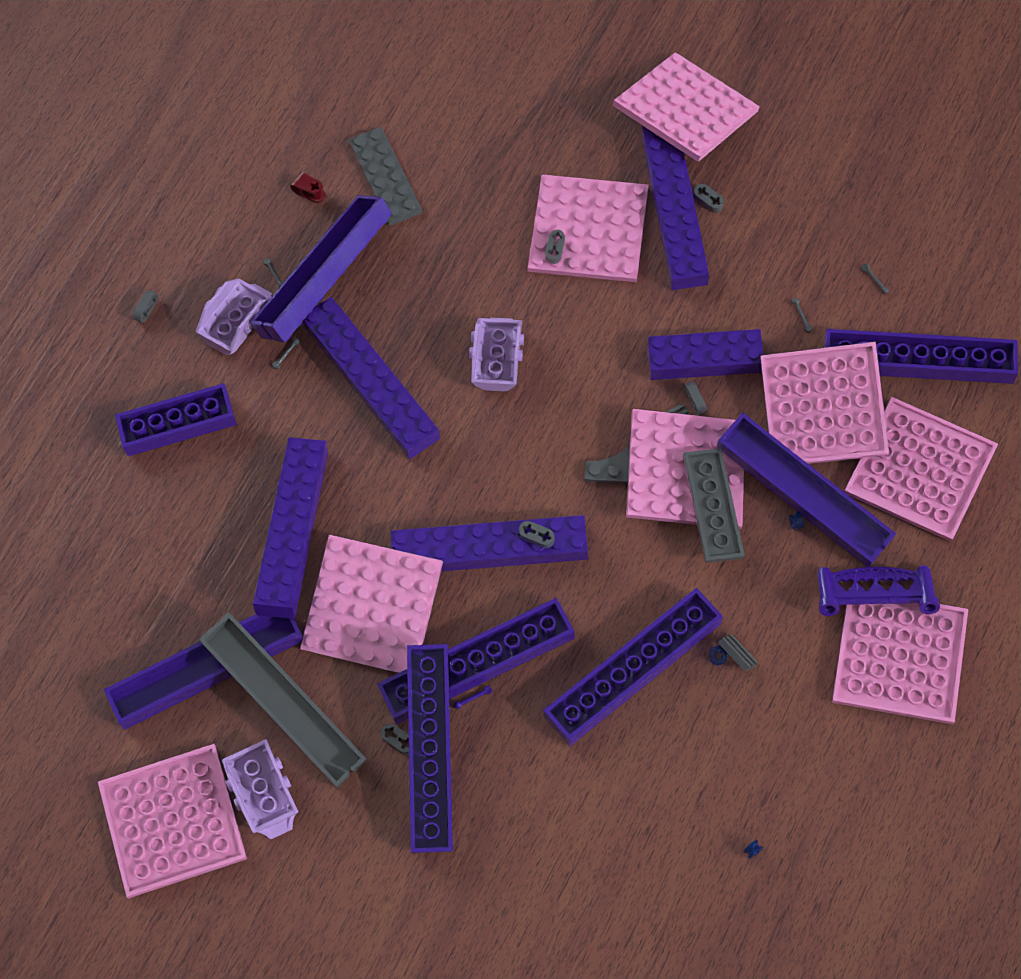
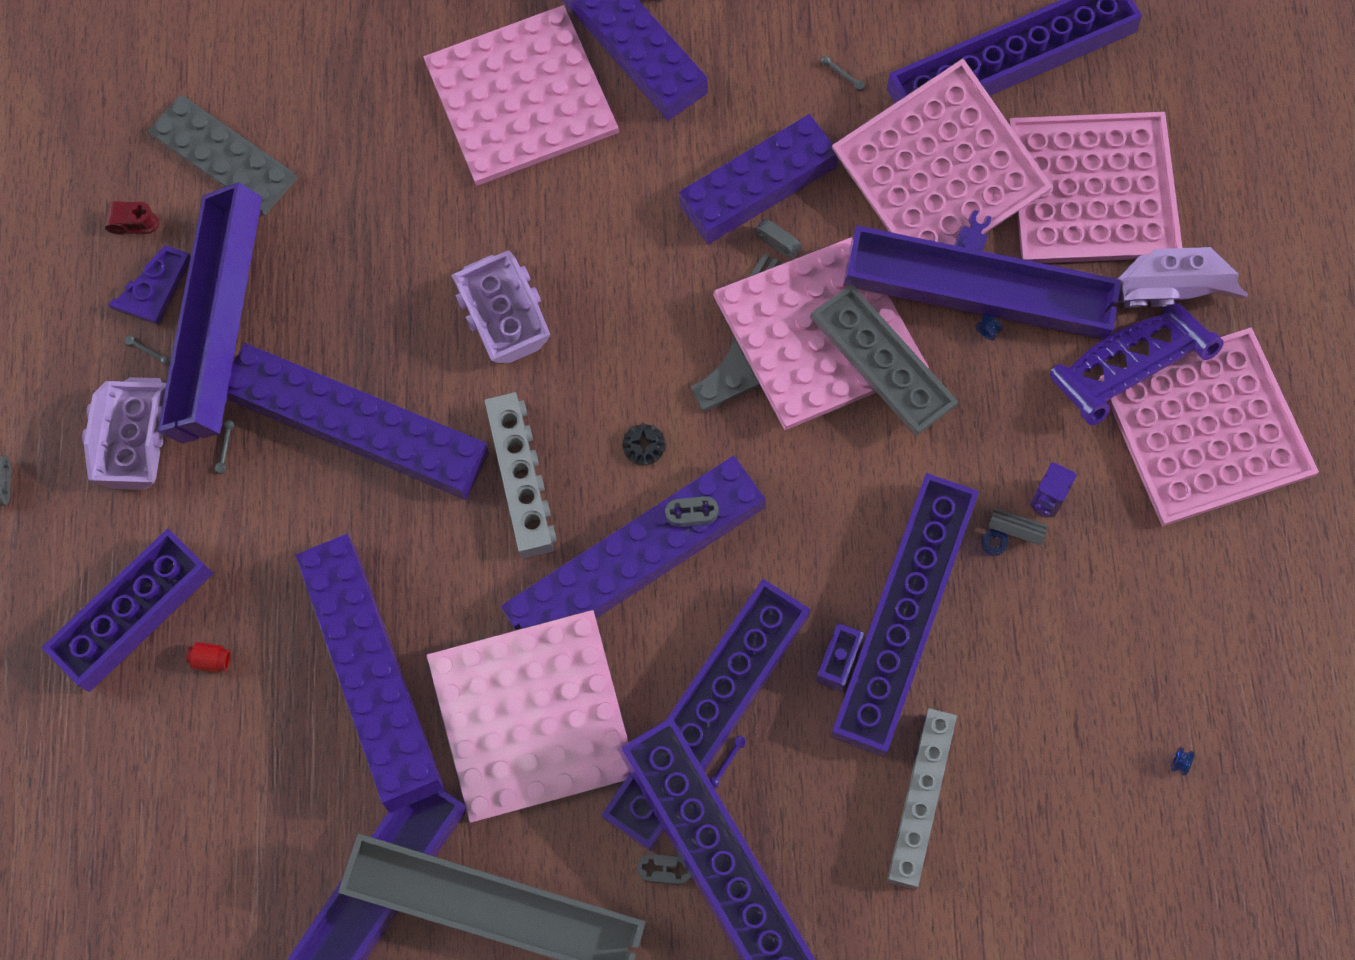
camera: 30 degrees left, 5 degrees up
(205, 472) = (208, 657): none -> red brick
(296, 238) = (154, 288): none -> dark purple wing
(459, 416) = (505, 409): none -> light grey brick
(540, 488) = (654, 450): none -> black gear
(559, 247) = (500, 136): dark grey beam -> none
(576, 670) = (839, 657): none -> dark purple brick
(576, 781) = (921, 799): none -> light grey brick
(771, 641) = (1052, 490): none -> dark purple brick
(817, 459) = (972, 236): none -> dark purple plate
(934, 549) = (1177, 275): none -> lavender slope

